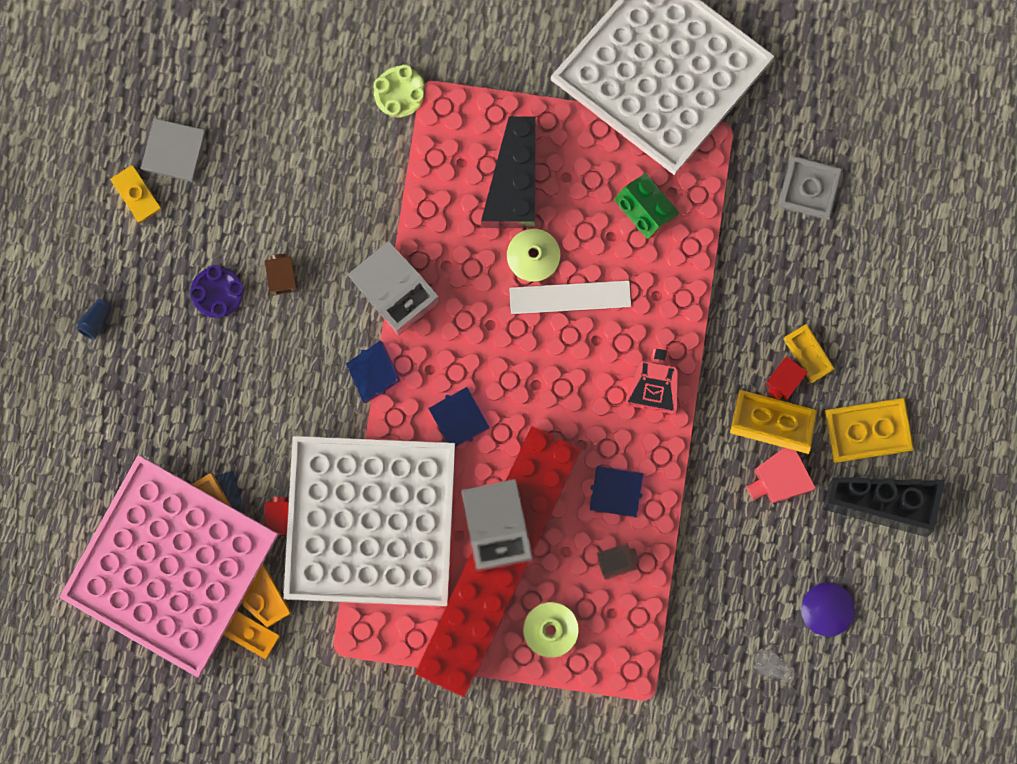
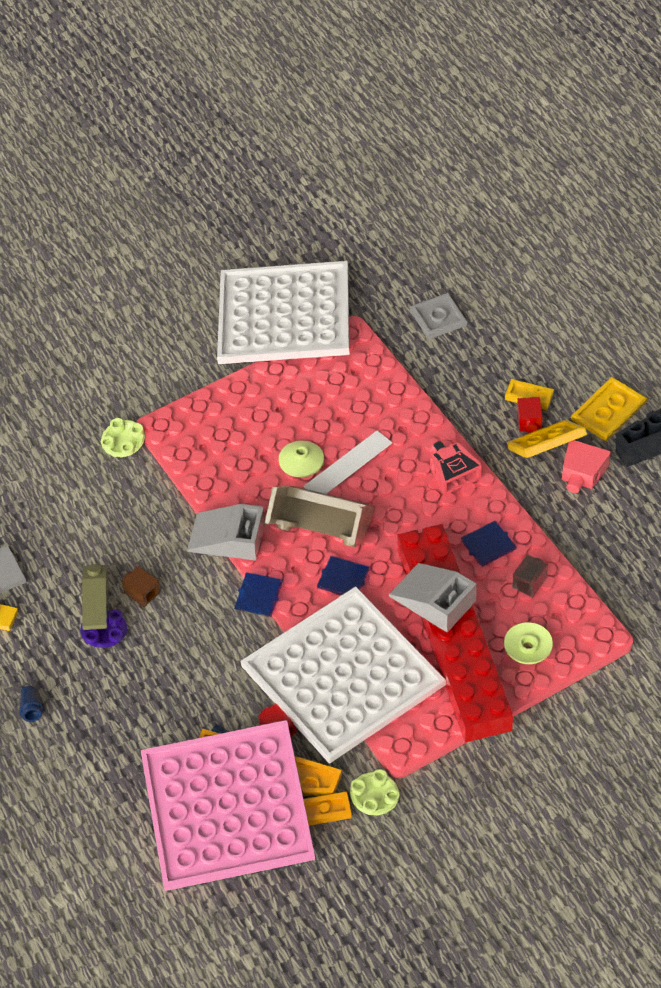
camera: 40 degrees left, 30 degrees down
(227, 259) = (95, 597): none -> olive slope
(303, 654) = (374, 793): none -> yellowish green dish
(497, 335) = (319, 513): none -> dark tan windscreen
(513, 182) = (249, 422): black wedge -> none
(646, 205) = (347, 383): green bracket -> none

